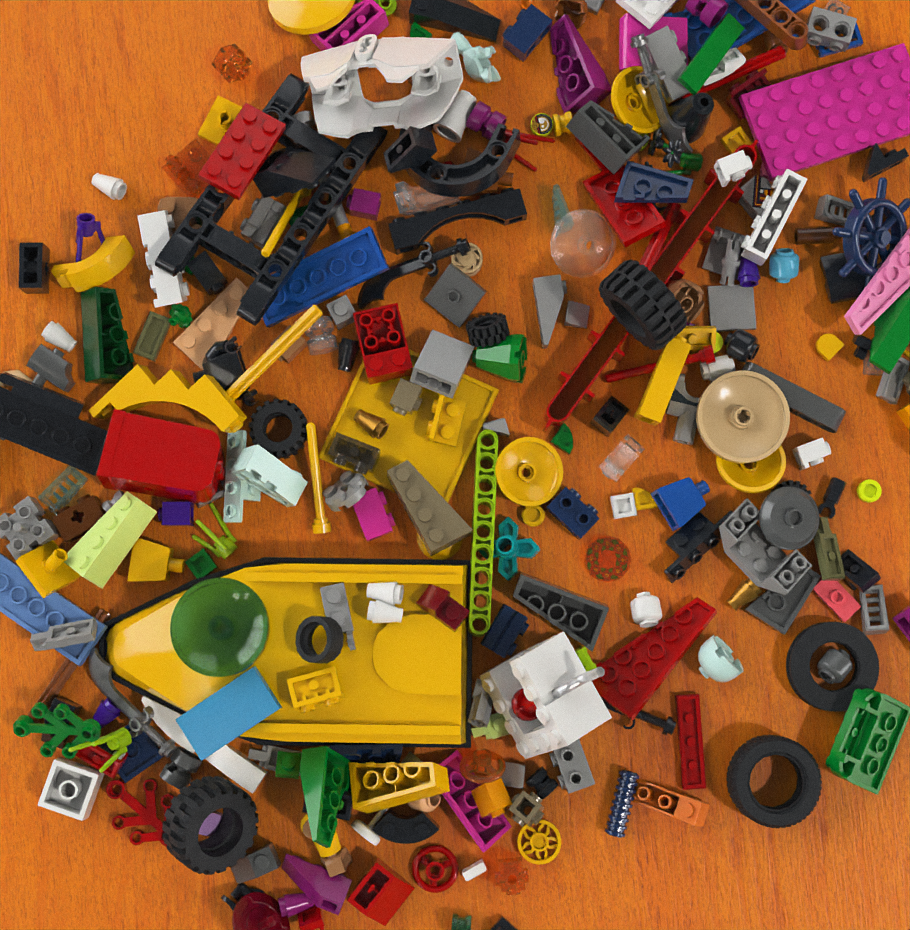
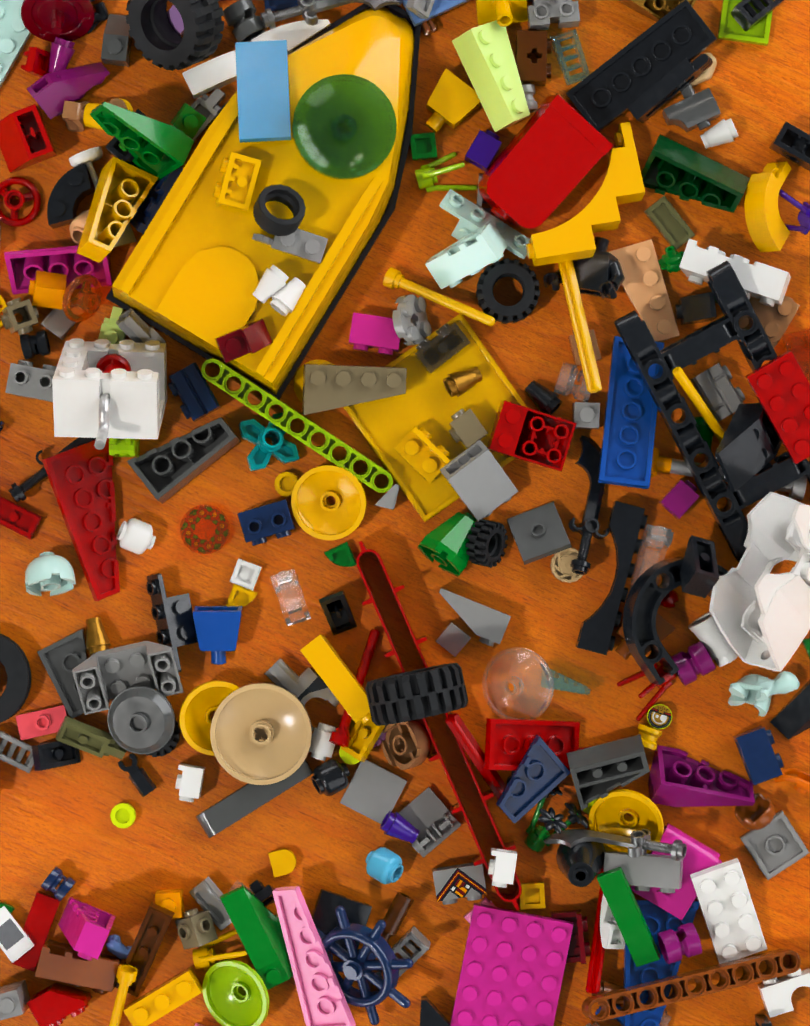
camera: 125 degrees right, 5 degrees up
(730, 261) = (416, 815): light grey pin -> none
(775, 214) = (432, 878): white brick -> none

